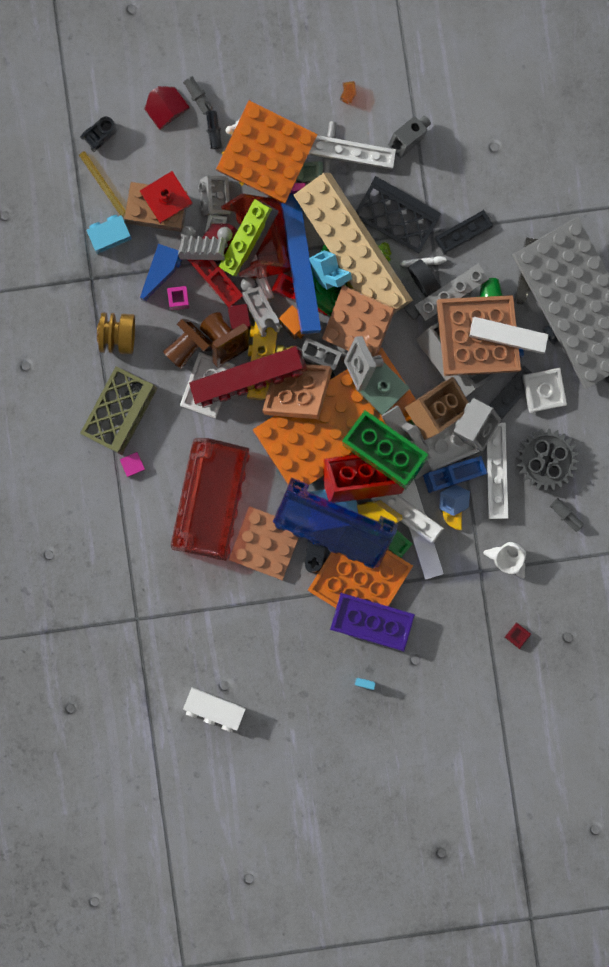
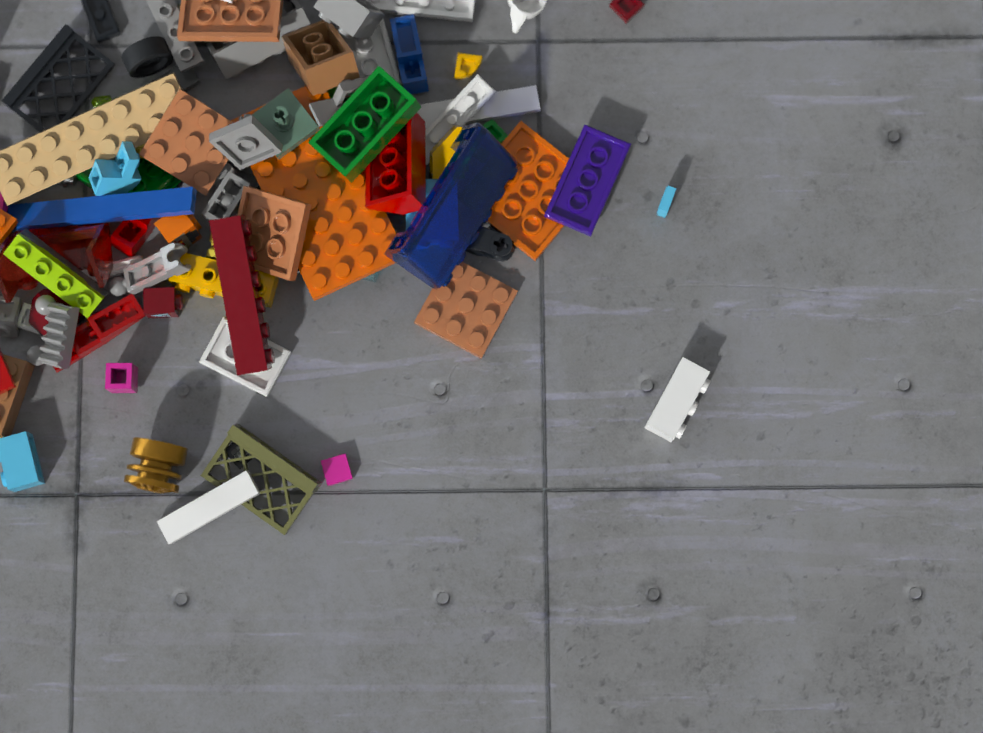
camera: 80 degrees left, 5 degrees down
(92, 375) = (208, 507): none -> white tile
(161, 268) = (73, 392): blue slope -> none
(187, 344) = (185, 373): reddish brown plant -> none
(210, 498) = (396, 371): clear red windscreen -> none
(226, 342) = (190, 319): reddish brown plant -> none
(429, 261) = (127, 40): white piece -> none
(454, 500) = (442, 59): medium blue panel -> none

